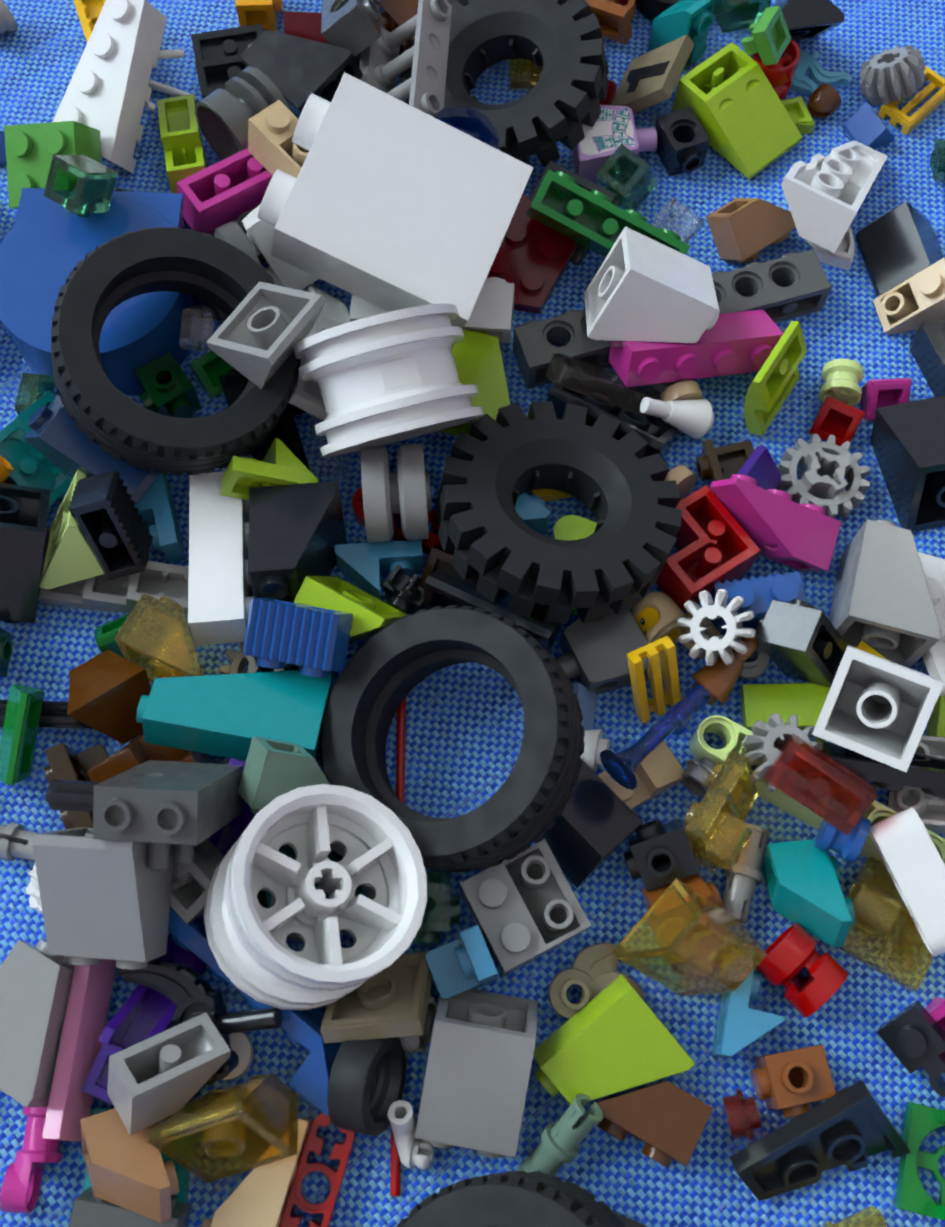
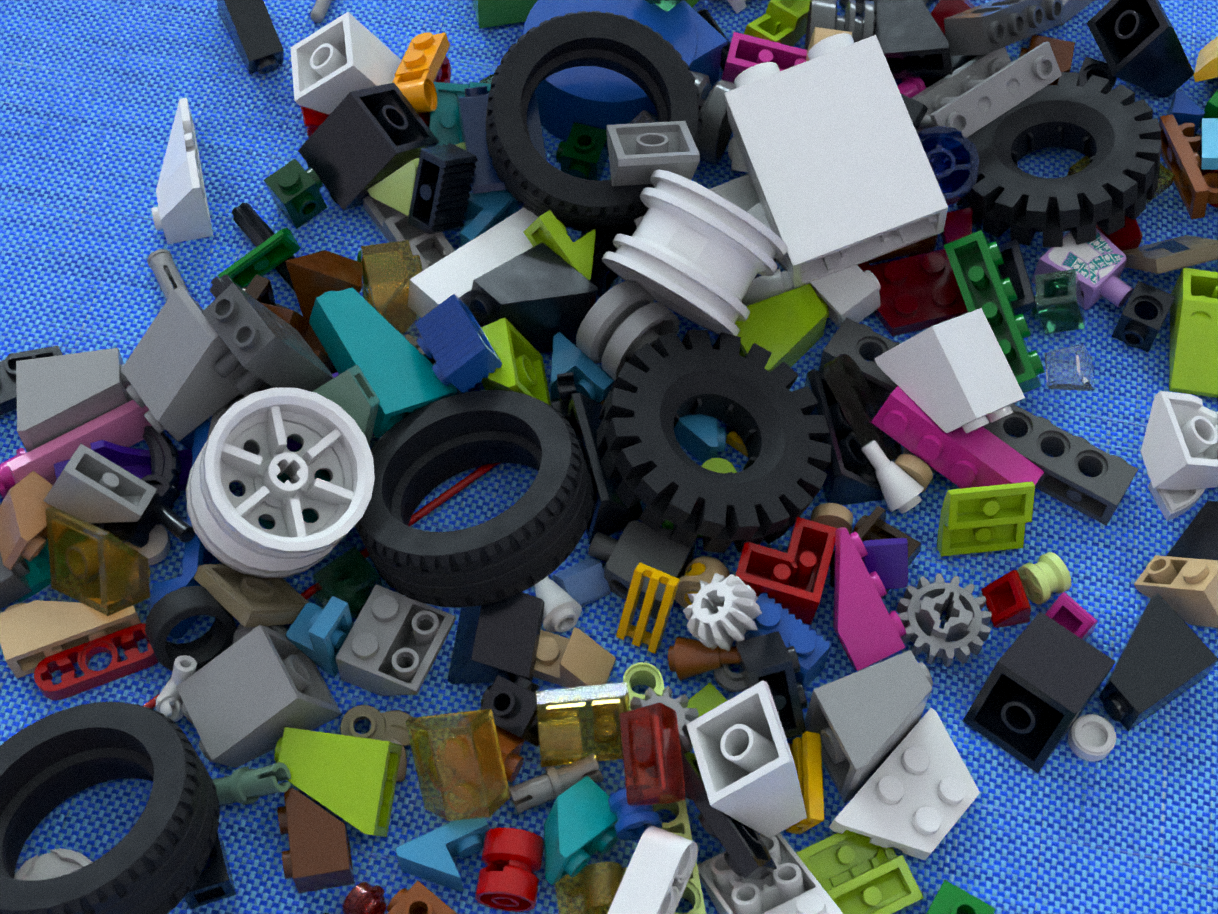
camera: 50 degrees right, 10 degrees down
(623, 765) = (640, 642): clear blue piece -> none
(747, 227) = (1111, 413): medium nougat slope -> none

